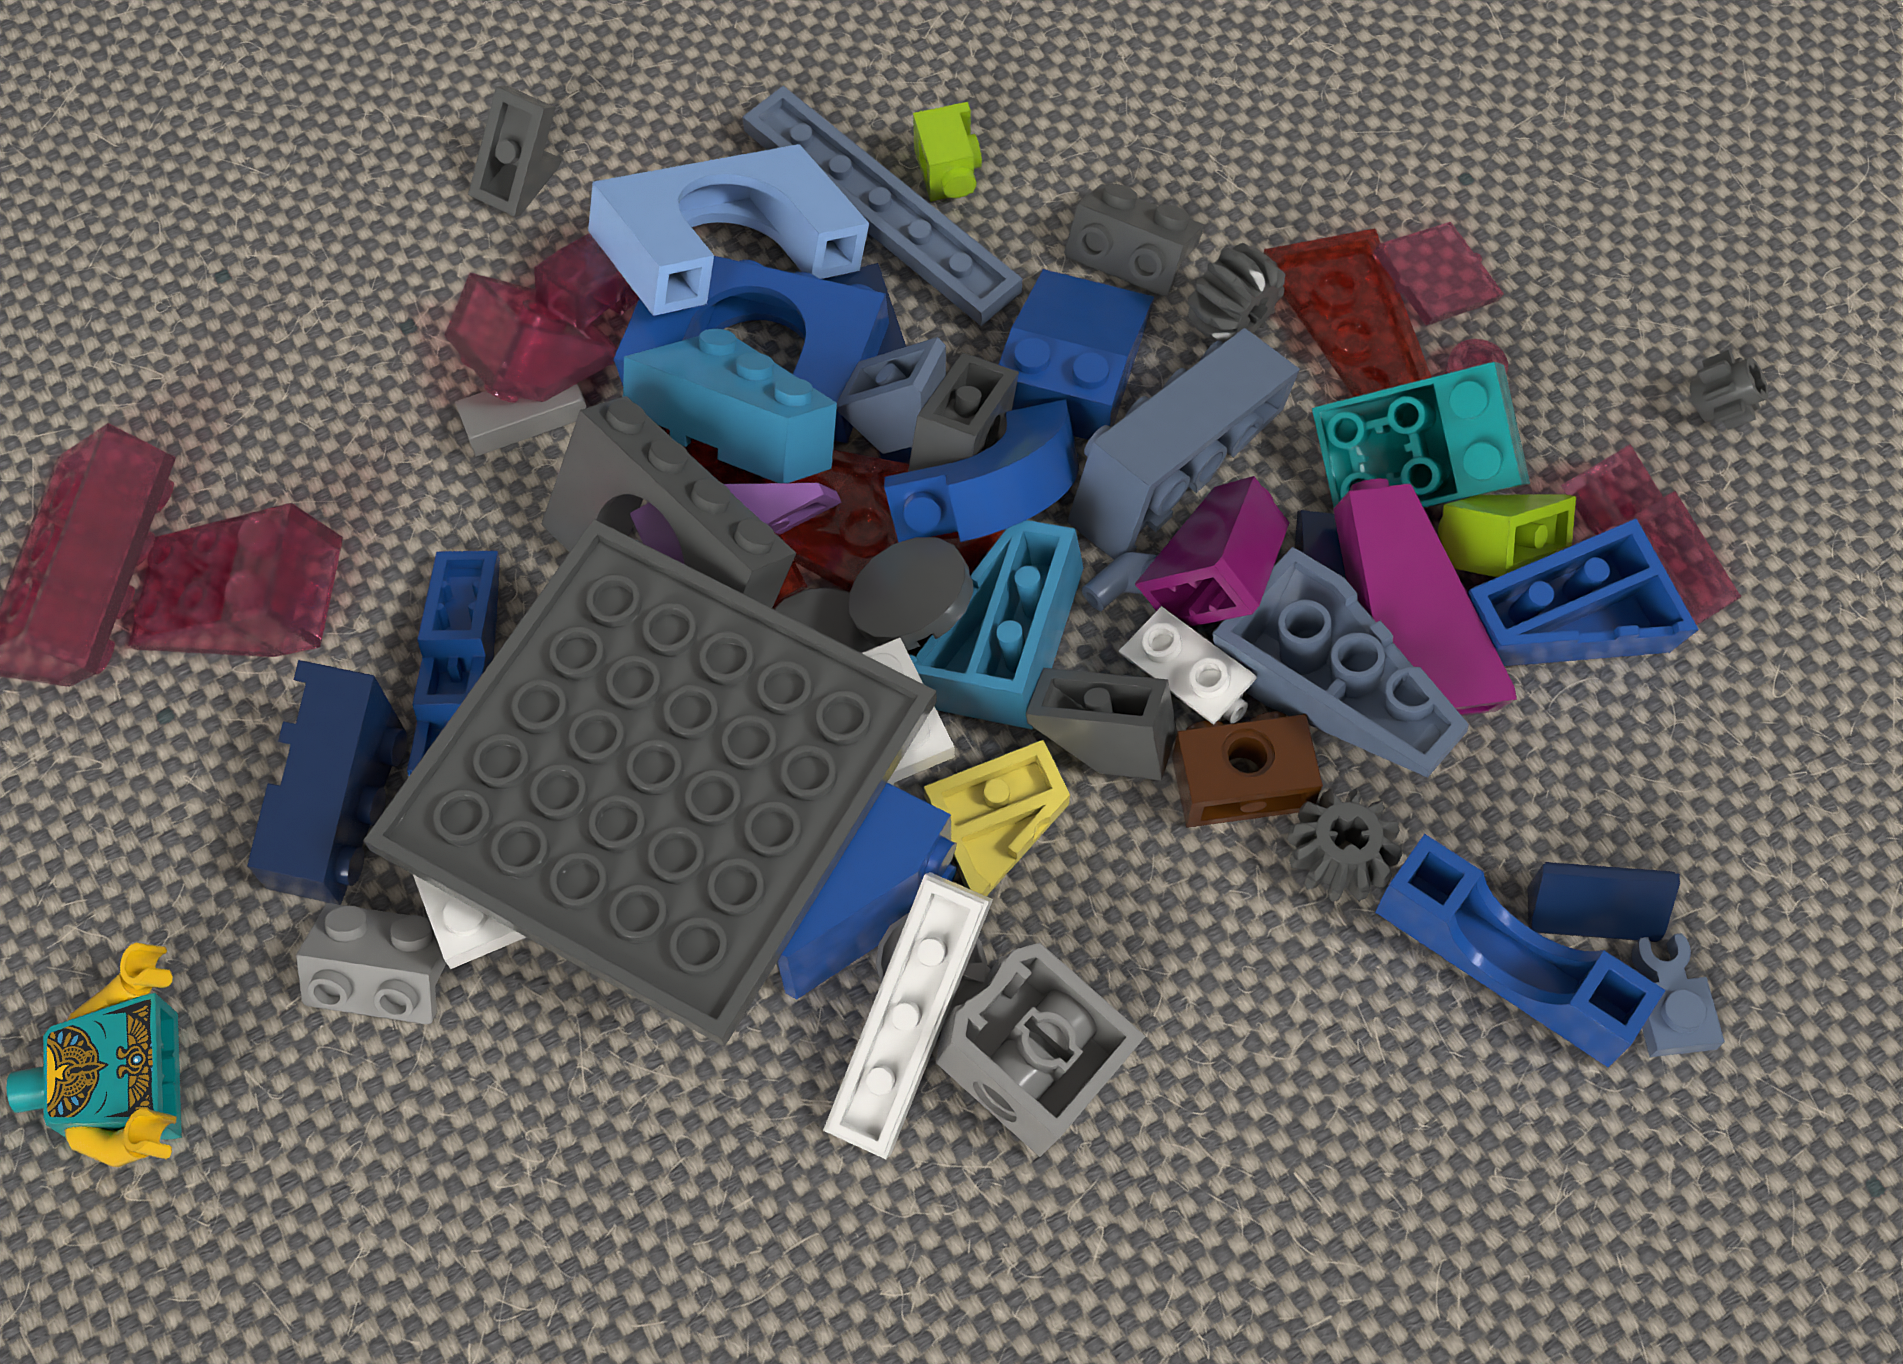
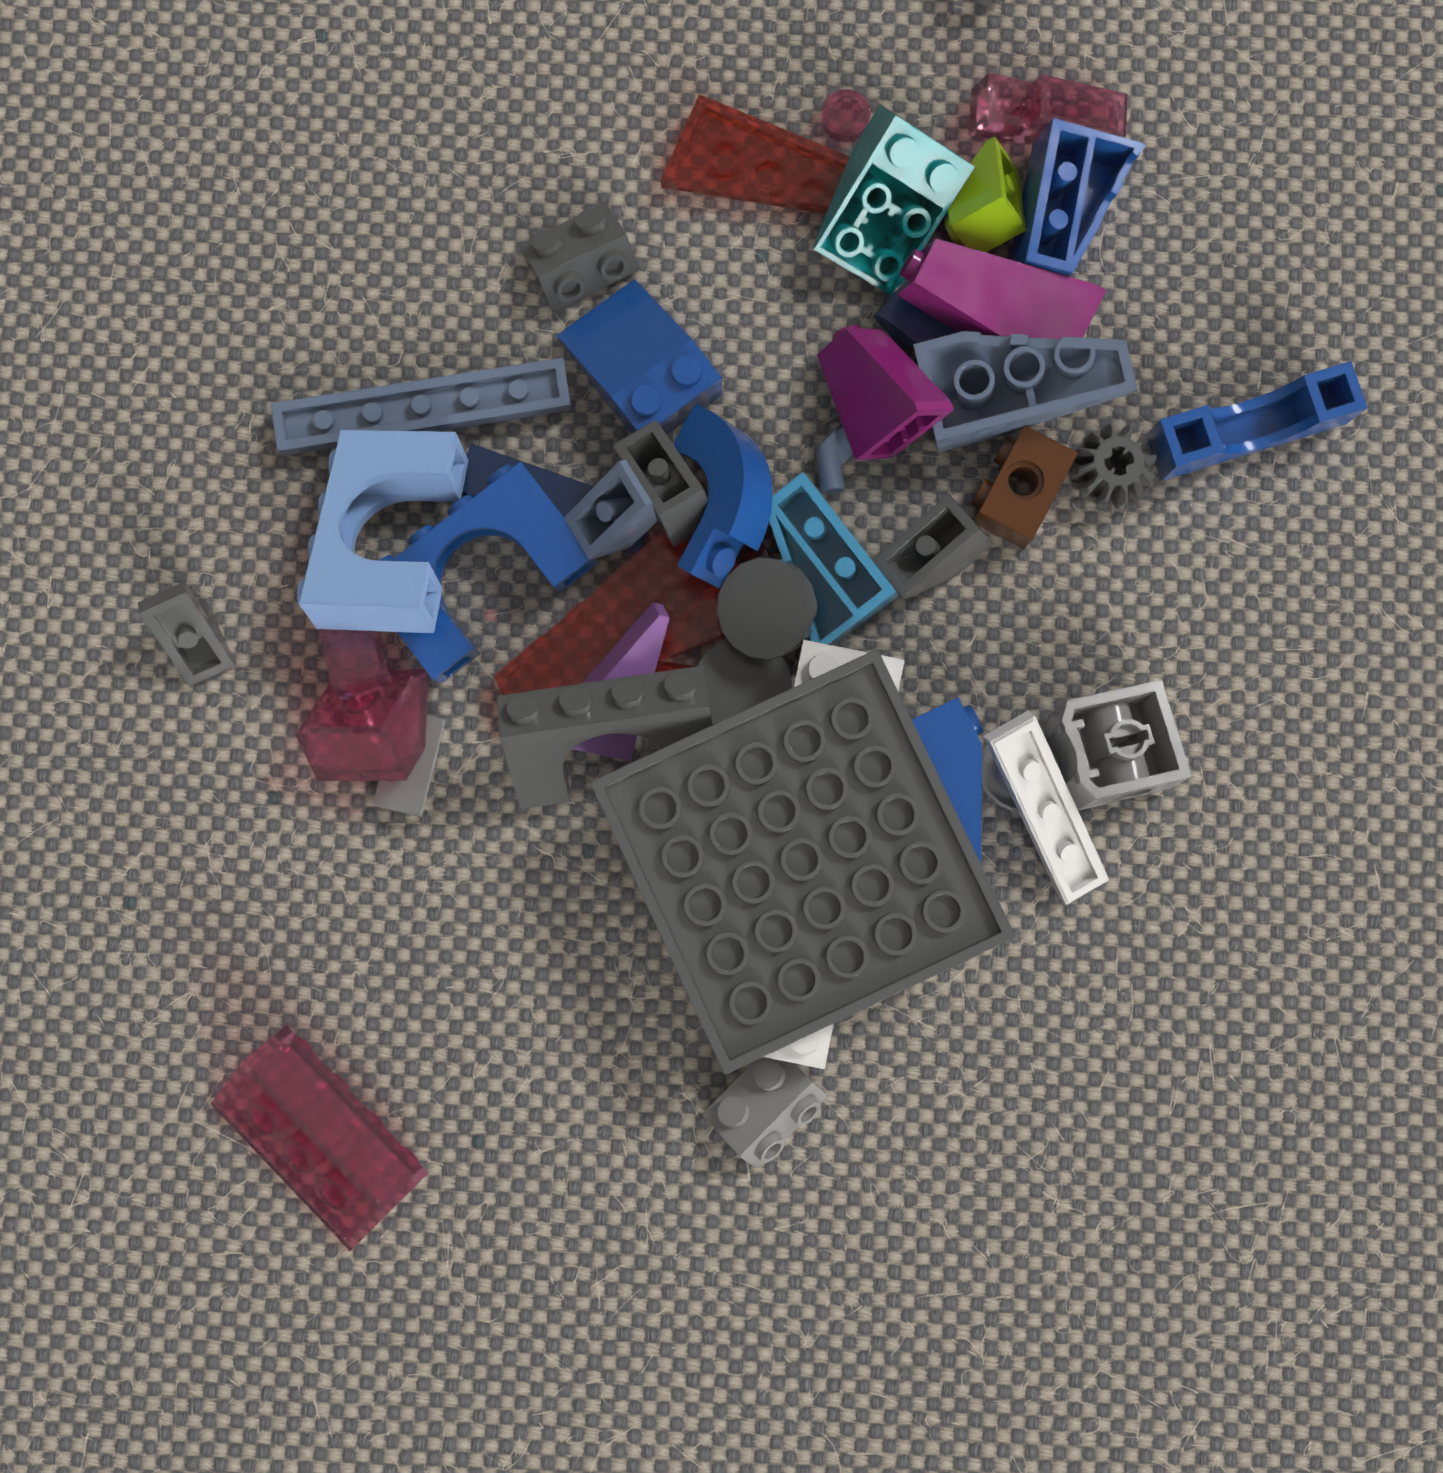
camera: 55 degrees left, 20 degrees up
(111, 1068) = (733, 1315): torso -> none
(239, 586) = (419, 1040): clear pink slope -> none
(330, 785) = (629, 1069): dark blue wedge -> none
(453, 639) = (585, 930): blue slope -> none
(735, 402) = (536, 621): dark azure wedge -> none
(946, 151) = (416, 330): lime brick -> none
(999, 811) = (941, 657): light yellow wing -> none
(1177, 440) = (770, 347): sand blue wedge -> none
(1193, 665) = (936, 470): white hinge -> none
(1236, 293) = (688, 228): dark grey gear -> none
(1438, 273) = (761, 81): clear pink piece -> none
(1601, 901) = (1253, 346): dark blue slope -> none
(1686, 1012) = (1335, 348): sand blue plate -> none

